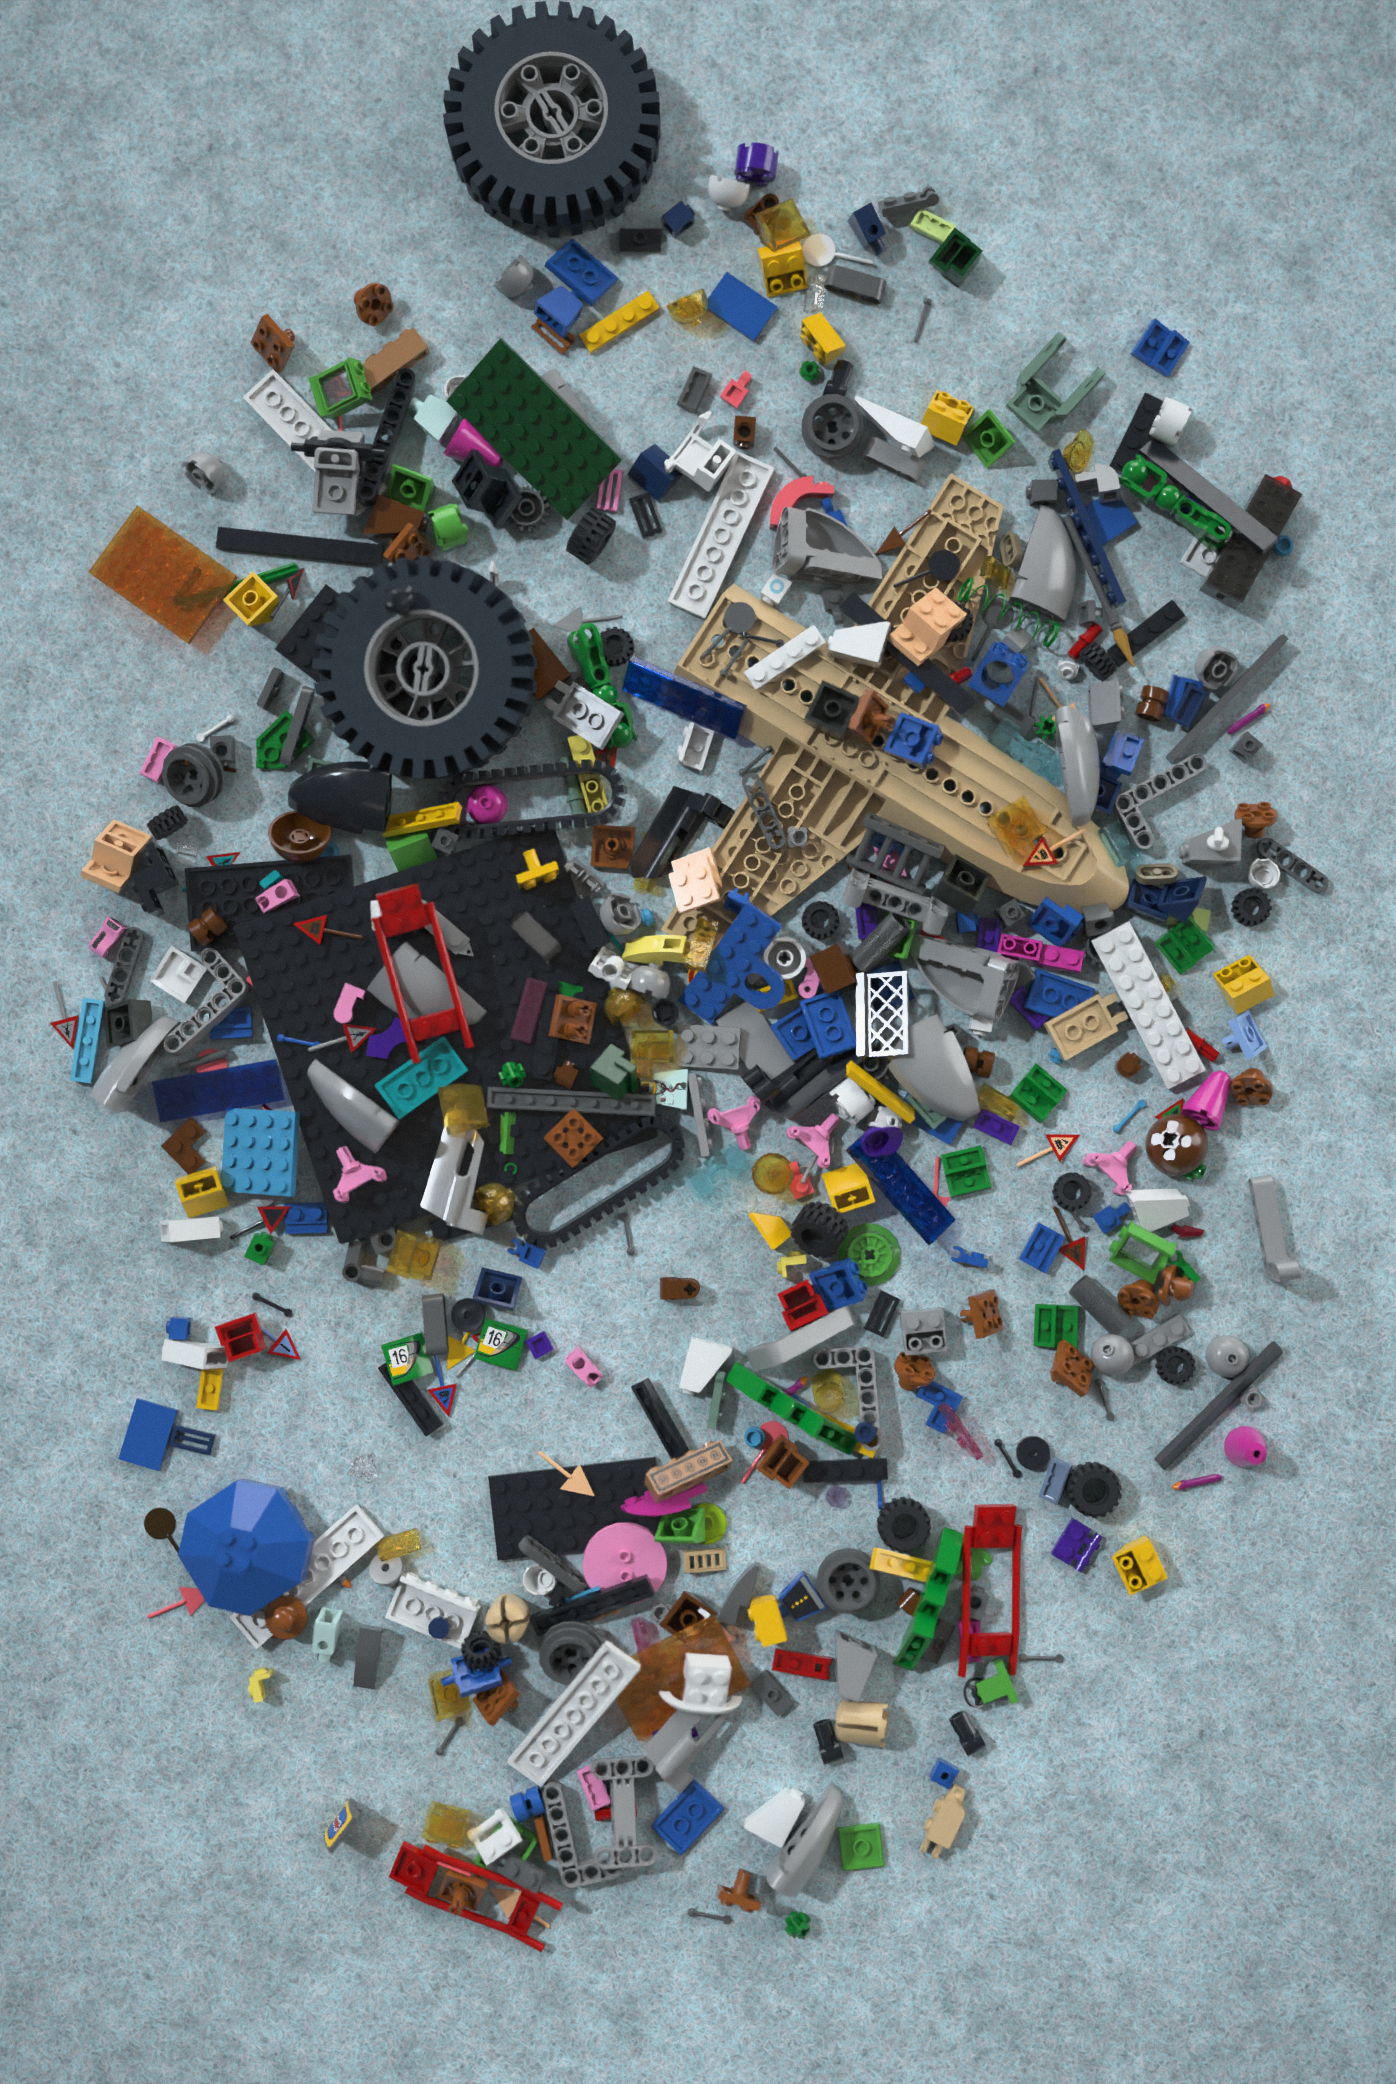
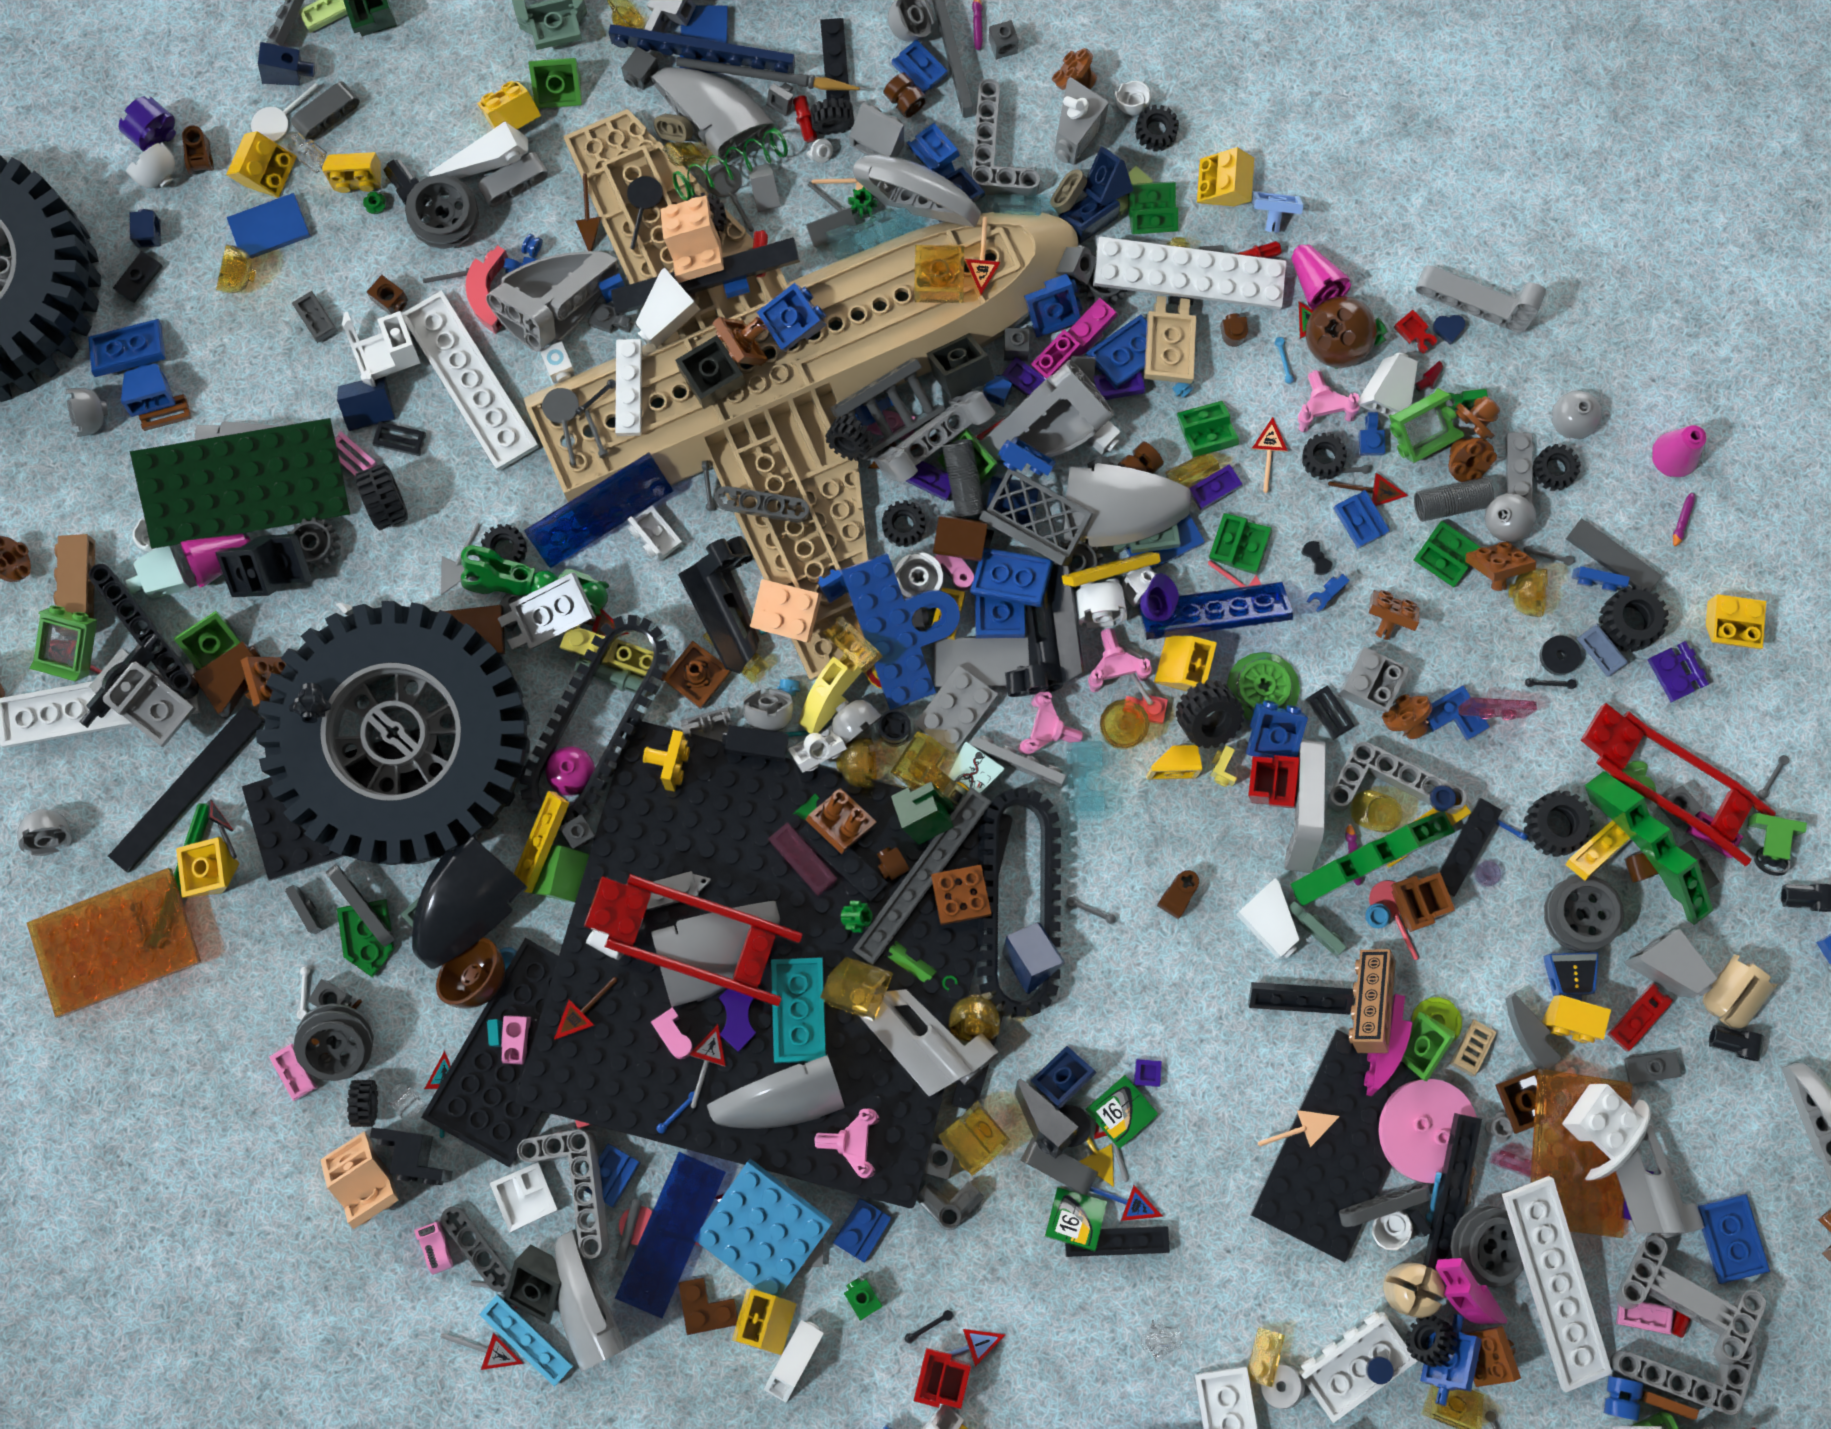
camera: 60 degrees left, 10 degrees down
(207, 926) = (496, 1130): reddish brown wheel -> none
(271, 1217) = (836, 1266): piece -> none
(448, 527) = (273, 628): bright green brick -> none
(456, 1299) = (1048, 1125): none -> slope
(524, 1657) = (1465, 1294): none -> dark pink slope
(528, 1253) = (1048, 1020): blue plate -> none
(535, 936) = (734, 803): clear smoke slope -> none
(566, 1214) = (1031, 956): none -> slope
(583, 1367) = (1198, 1041): bright pink leg -> none
(619, 322) = (199, 345): yellow plate -> none
(735, 391) = (344, 279): coral plate -> none
(776, 1817) = (1786, 1144): white slope -> none
(781, 226) = (221, 138): clear yellow slope -> none
(801, 832) = (813, 484): light grey plate -> none
(852, 508) = (531, 245): none -> blue bush
(852, 841) = (849, 438): none -> black tyre
(859, 589) = (609, 284): none -> blue plate
(922, 973) = (1018, 454): none -> blue plate
(926, 301) = (389, 60): dark grey piece -> none
(986, 685) = (801, 215): blue brick -> none
(995, 1226) = (1321, 564): none -> black piece
(1063, 1404) = (1530, 592): none -> clear yellow cylinder
(1110, 1455) = (1609, 581): none -> blue plate
(1133, 1447) = (1612, 555): none -> dark grey tile
(1189, 706) = (930, 63): dark blue tile -> none
(1215, 1195) = (1413, 329): none -> red plate
(1218, 1405) = (1620, 452): black tile -> none
(1235, 1222) = (1449, 327): none -> dark blue tile
(1251, 1088) = (1331, 231): dark orange plate -> none
(1258, 1399) = (1637, 413): light grey plate -> none
(1290, 868) = (1139, 66): dark grey beam -> none

